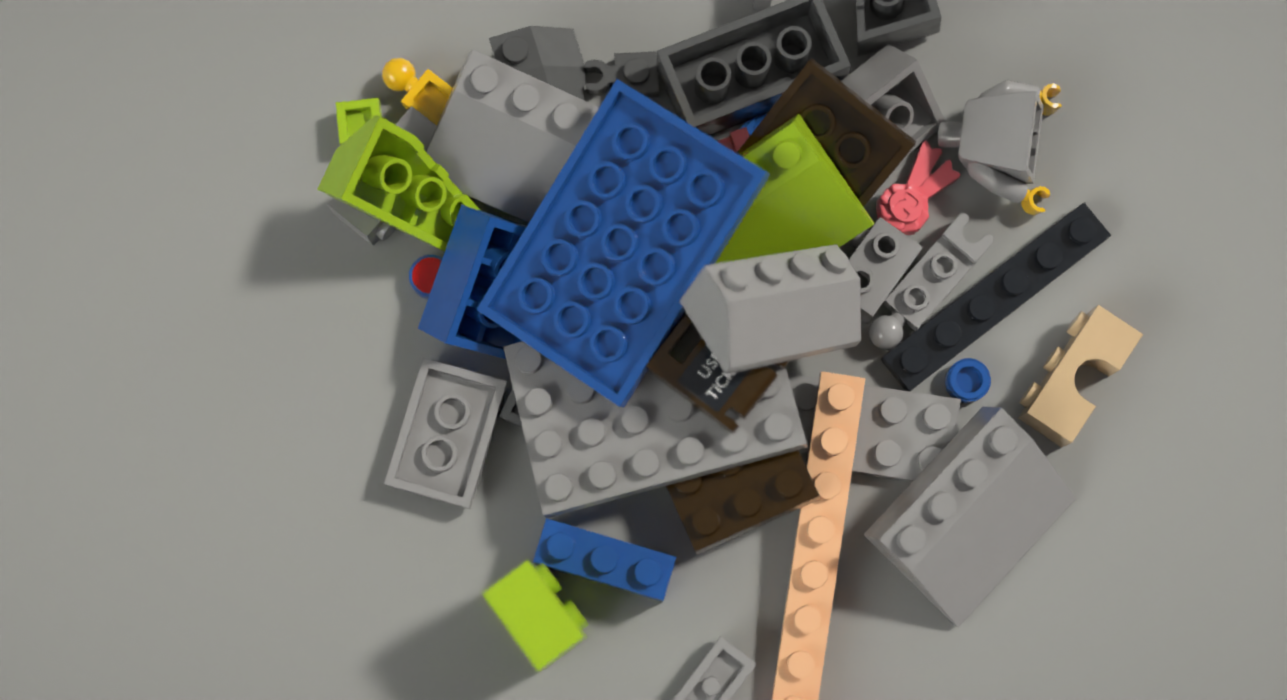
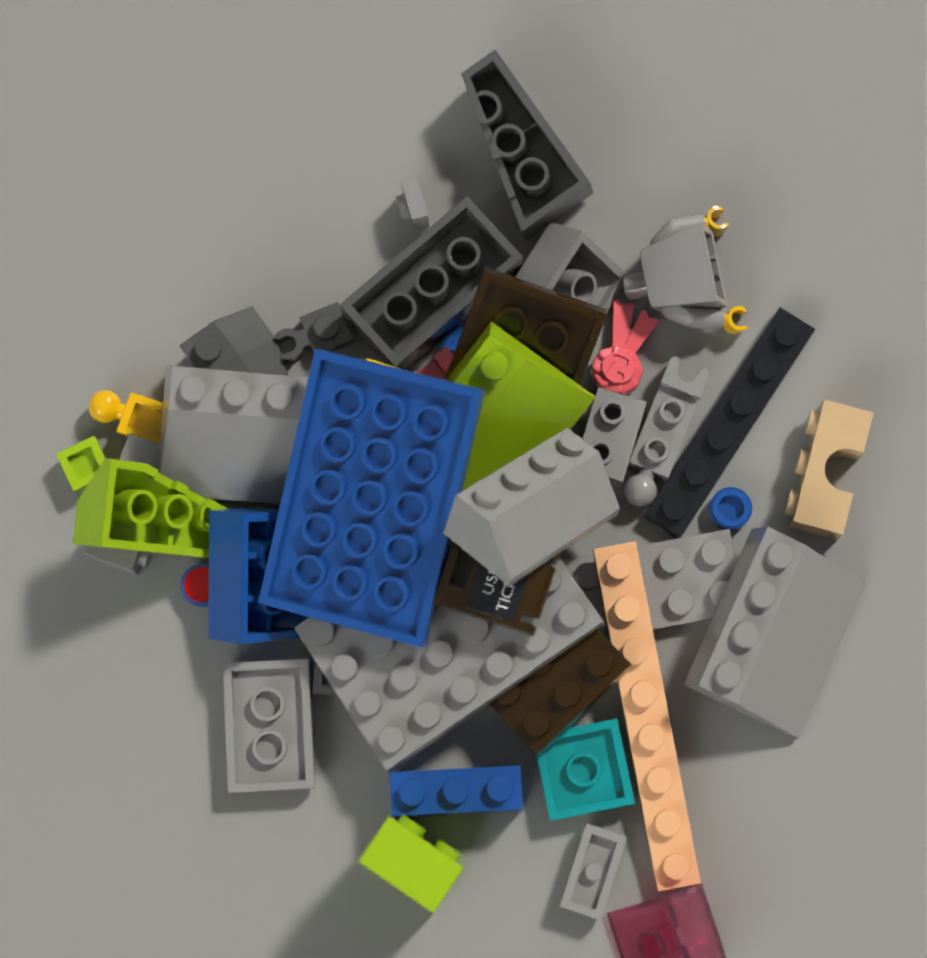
camera: 15 degrees left, 0 degrees up
(738, 585) = (585, 771): none -> teal plate

